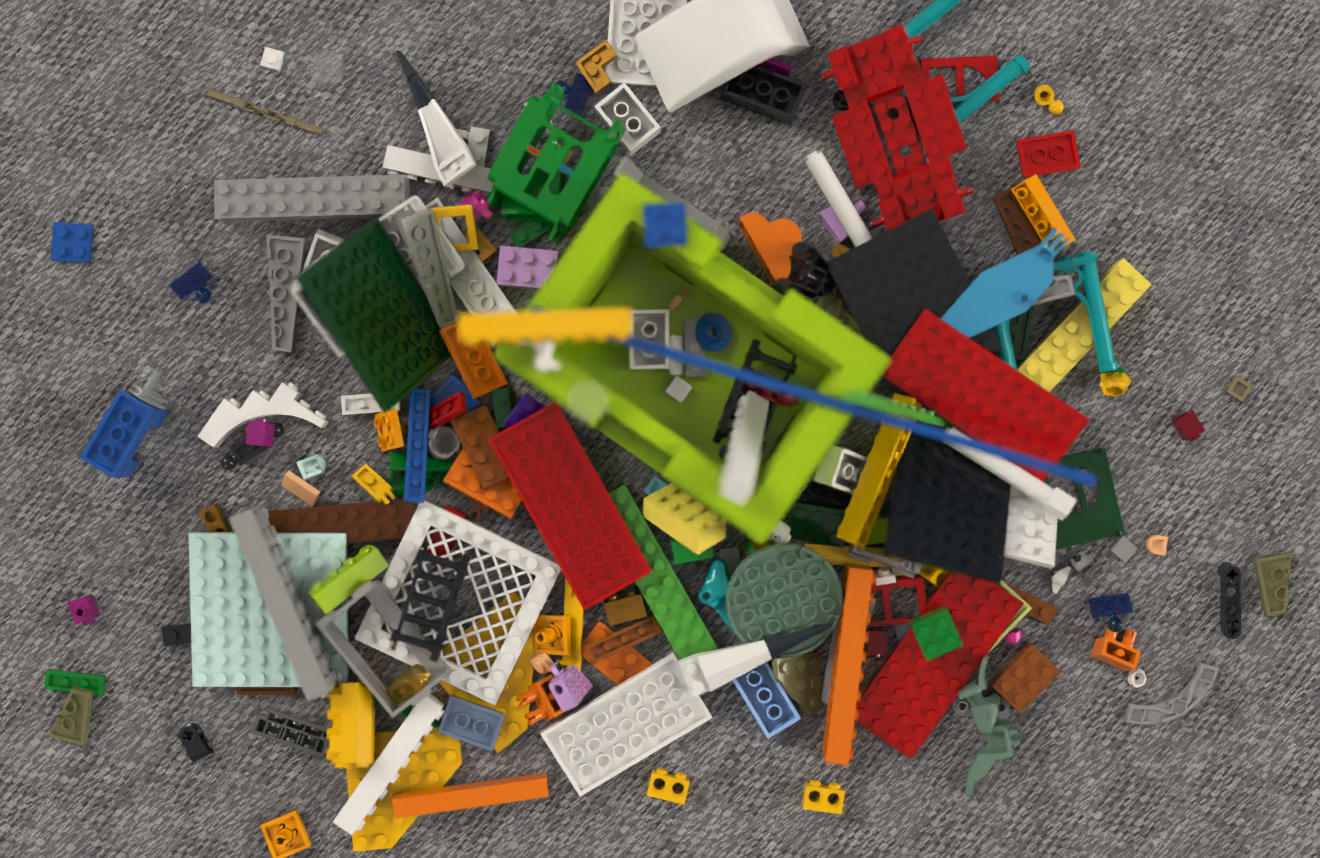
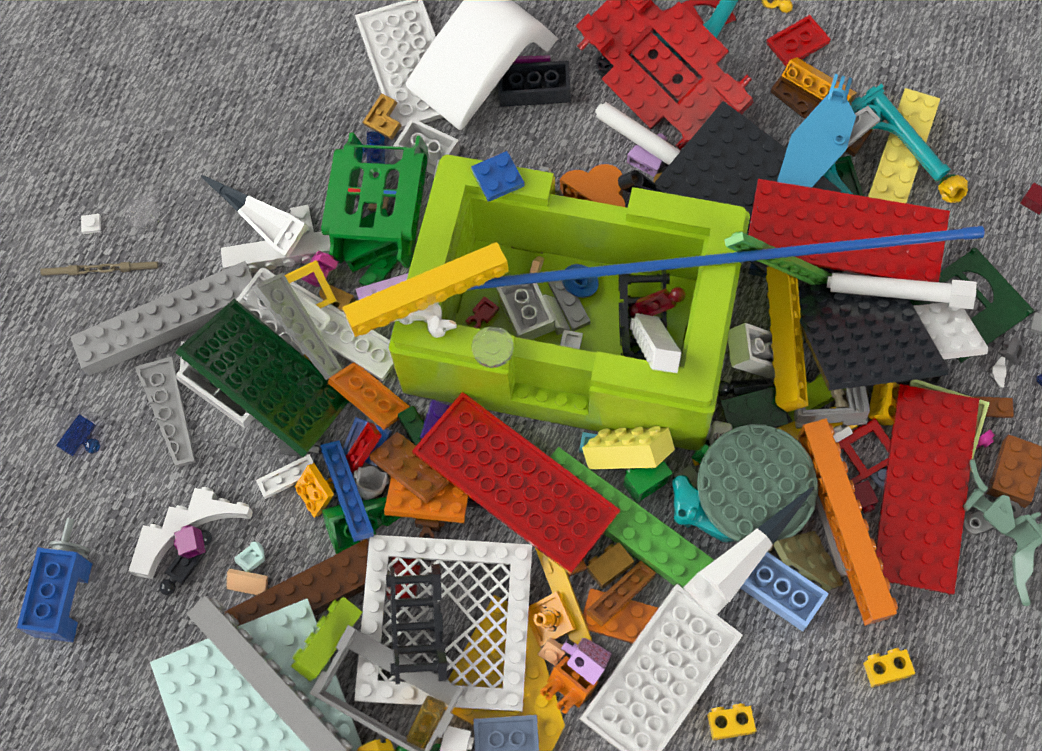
camera: 20 degrees left, 20 degrees down
(214, 519) = (168, 643): pearl gold leg -> none
(373, 484) = (318, 546): yellow hinge -> none
(935, 633) = (914, 456): green brick -> none

